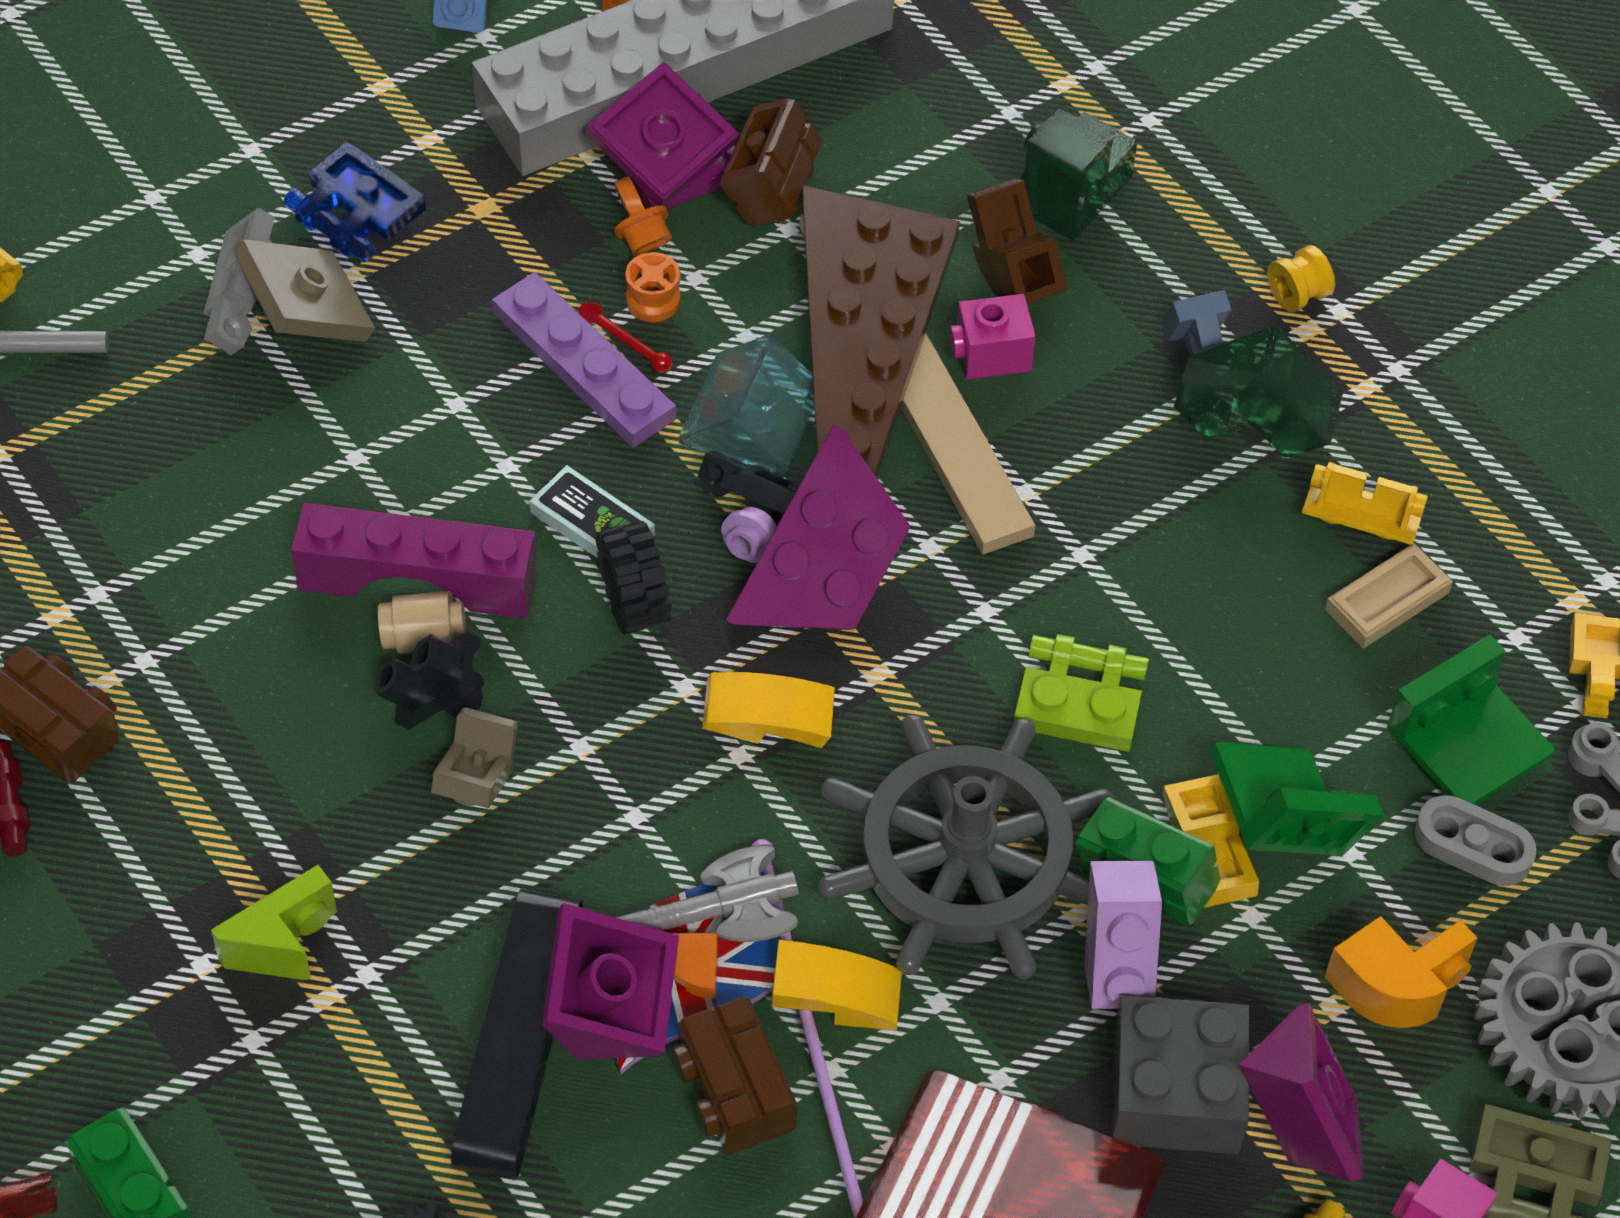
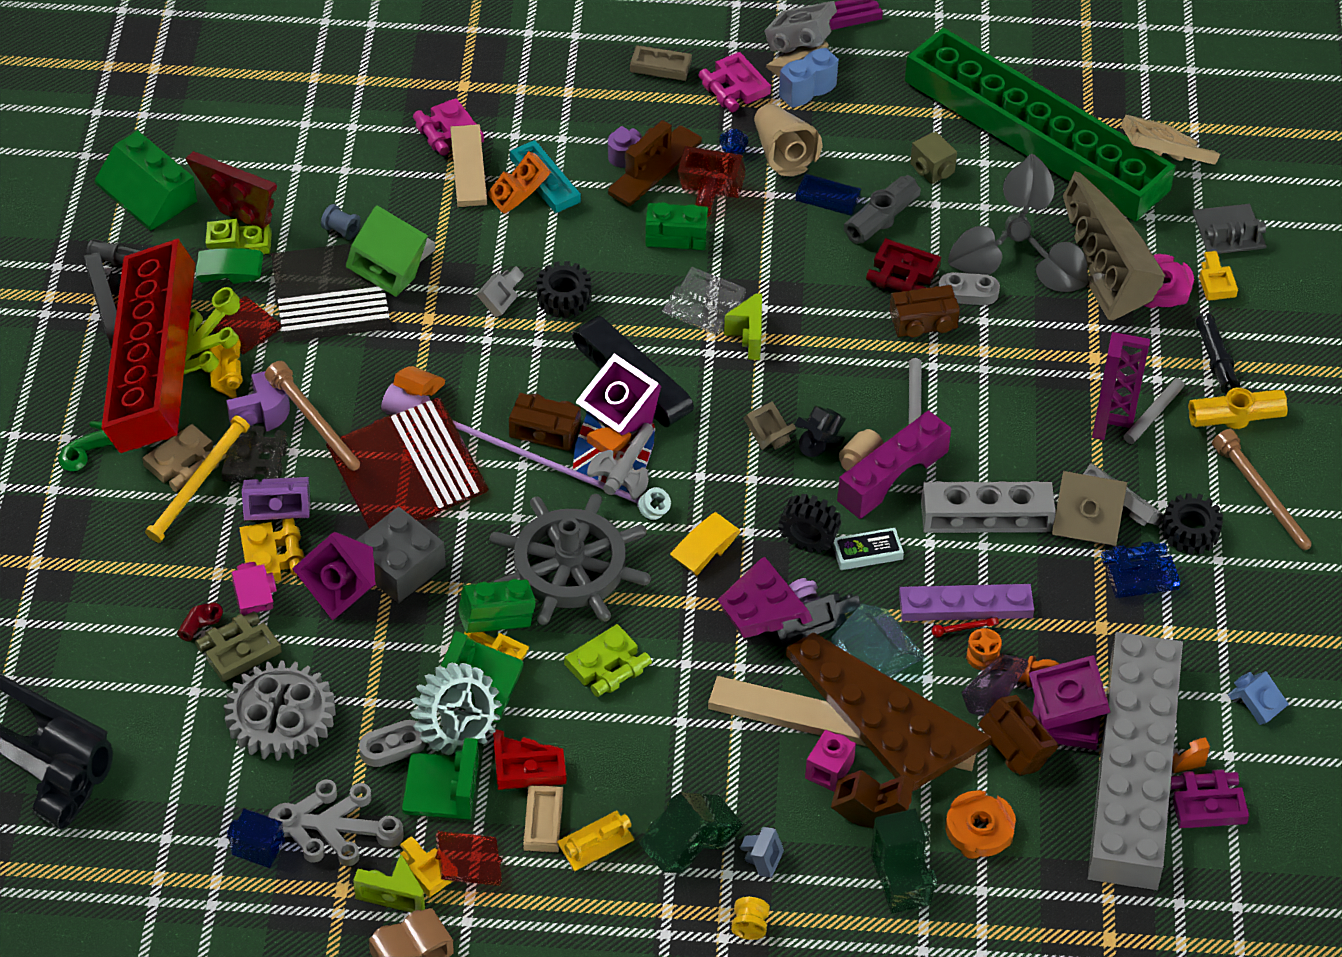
camera: 130 degrees right, 5 degrees down
(31, 221) = (1228, 444): none -> medium nougat piece
(80, 316) = (1110, 385): none -> magenta fence
(215, 165) = (1189, 537): none -> black tyre
(239, 635) = (914, 389): none -> light grey bar
(266, 1045) = (704, 300): none -> clear slope
(396, 415) = (987, 507): none -> light grey brick
(701, 218) = (993, 683): none -> clear purple slope
(758, 816) = (646, 508): none -> light aqua bush
(838, 982) = (553, 477): yellow slope -> none
(924, 171) = (980, 841): none -> orange plate
(1122, 931) = (468, 559): lavender brick -> none
(1337, 664) = (527, 763): none -> red wing
(1375, 761) = (459, 681): none -> light aqua gear
(1393, 982) = (363, 658): light orange brick -> none
(1542, 618) = (468, 858): none -> clear red piece

